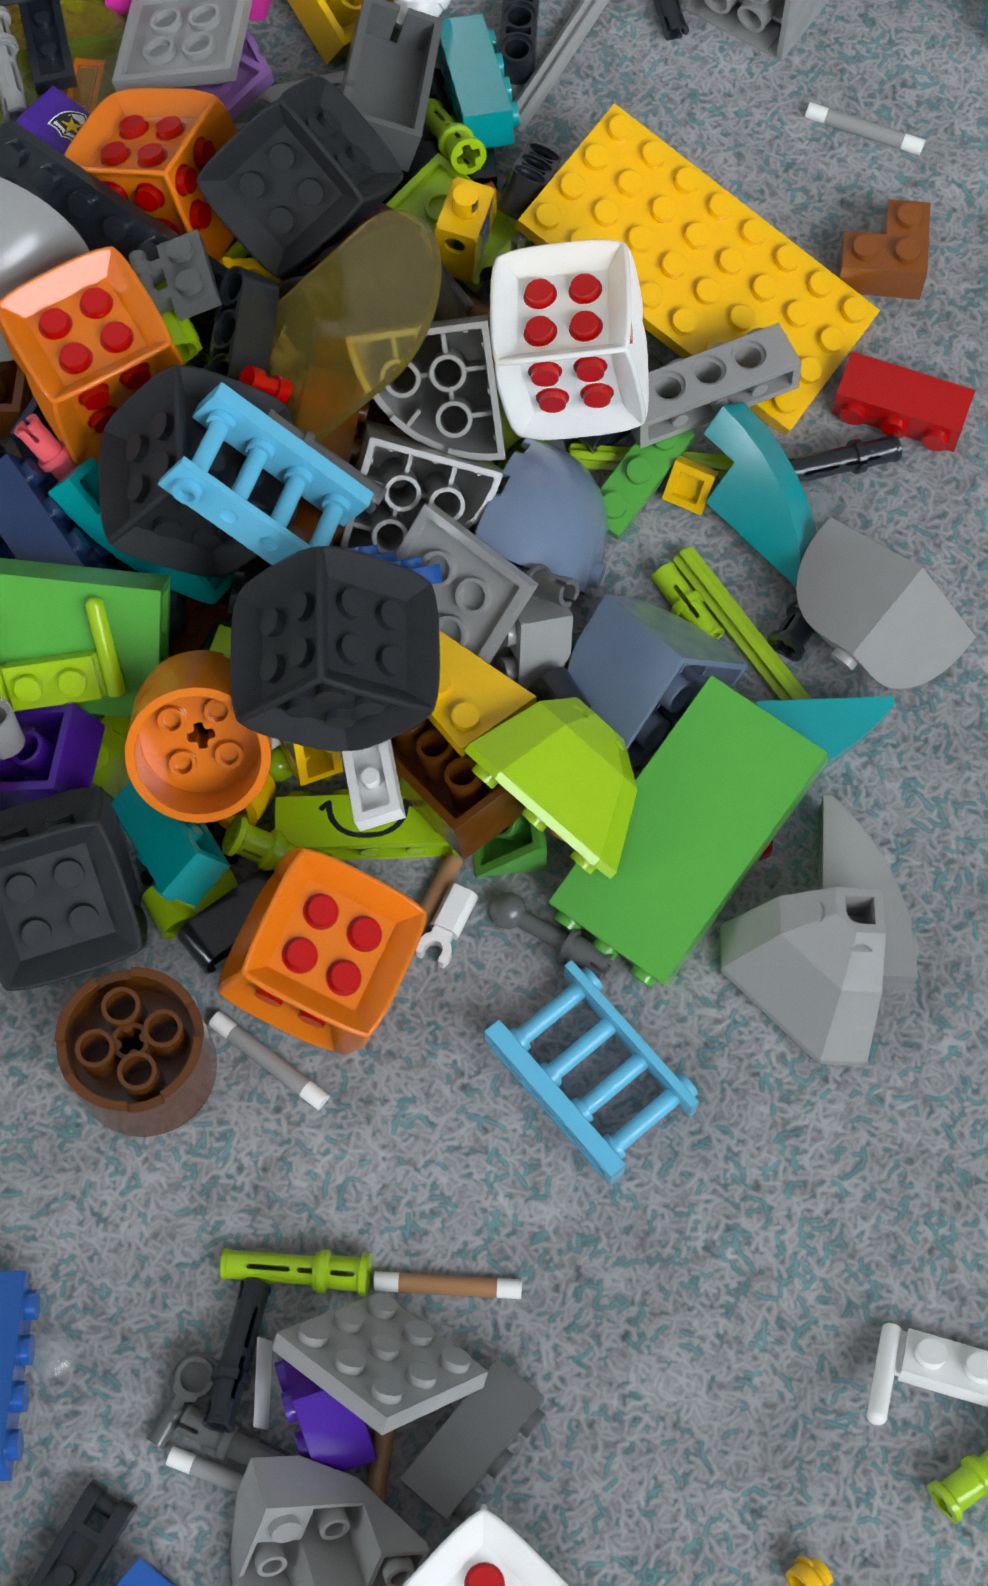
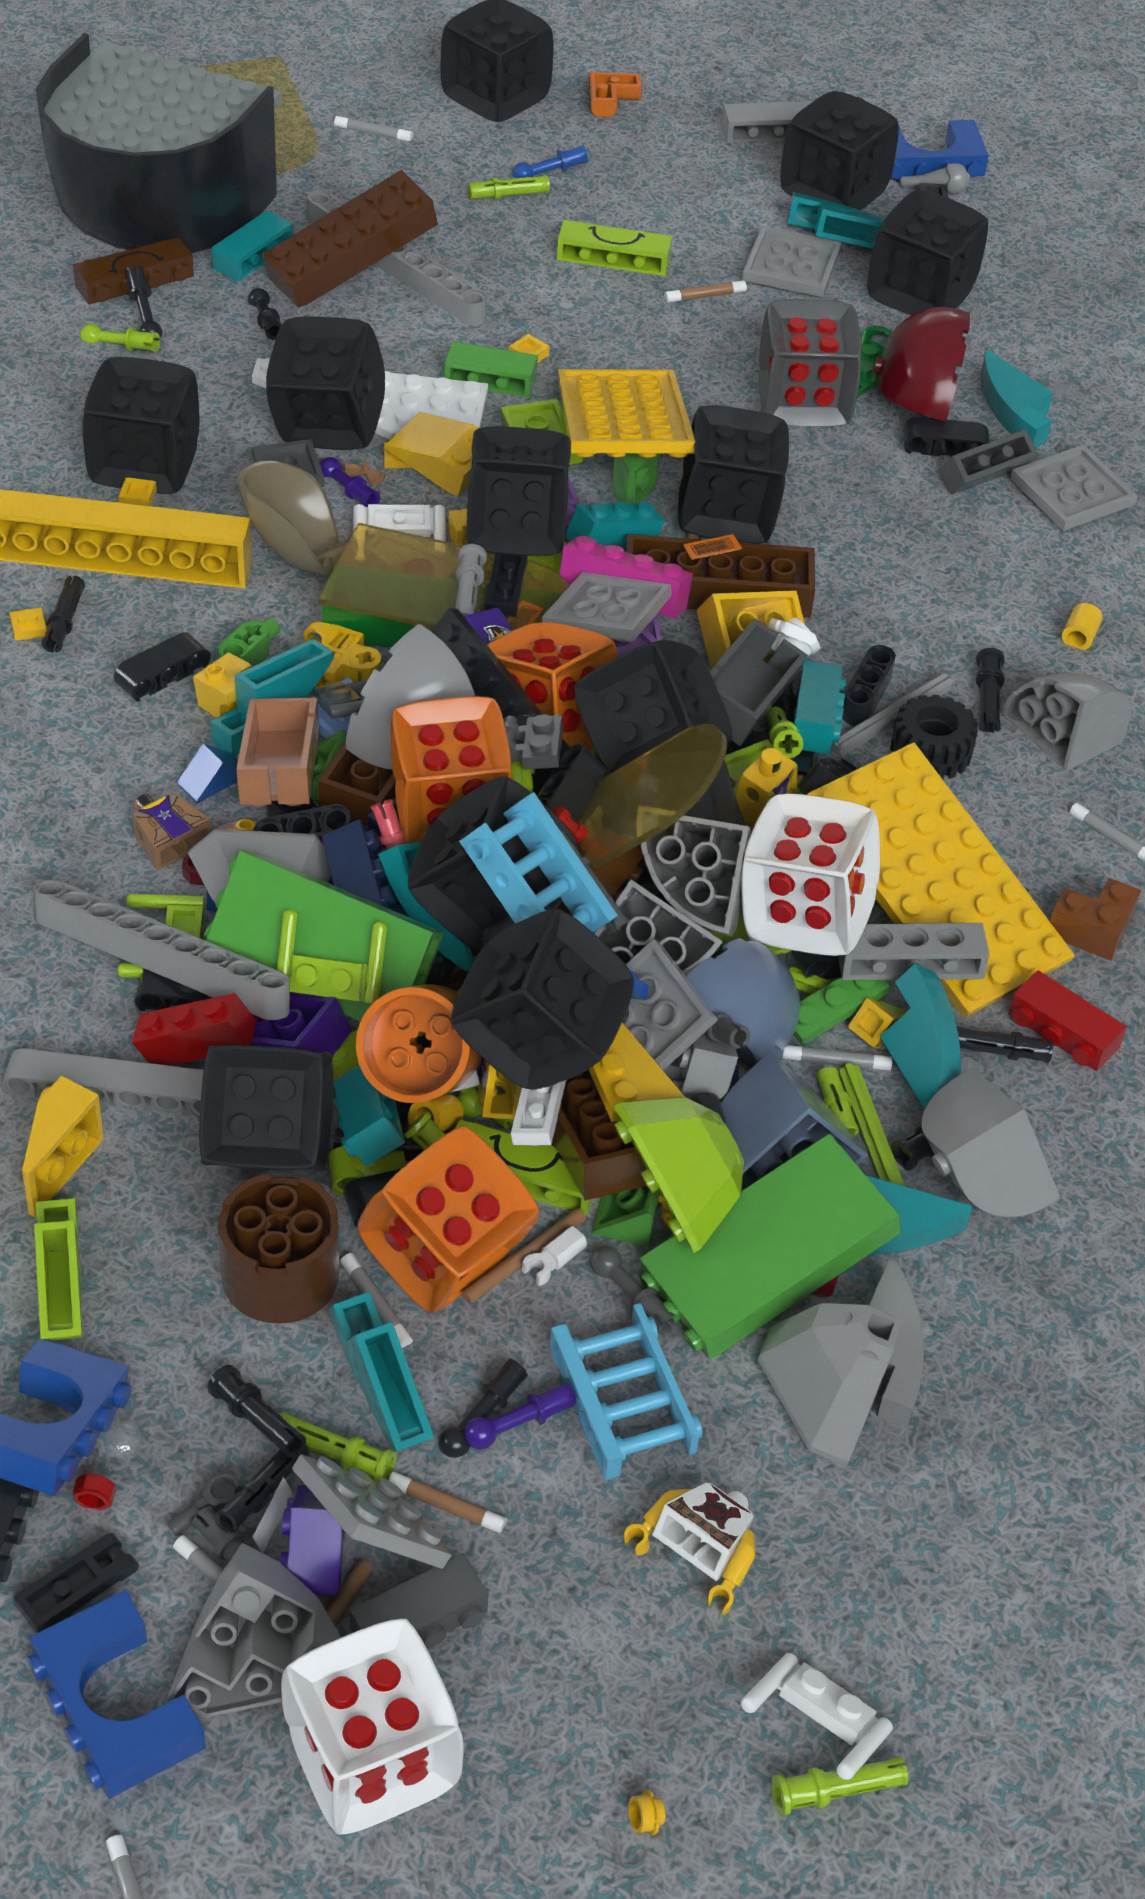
camera: 15 degrees right, 20 degrees down
(49, 1436) = (94, 1491): none -> red tile
(176, 1256) = (246, 1402): none -> black pin
(313, 1157) = (381, 1371): none -> teal slope
(427, 1203) = (453, 1440): none -> black pin
(454, 1184) = (482, 1432): none -> dark purple pin
(627, 46) = (940, 730): none -> black tyre
(665, 542) = (837, 1057): none -> light grey bar
(750, 1216) = (705, 1530): none -> torso

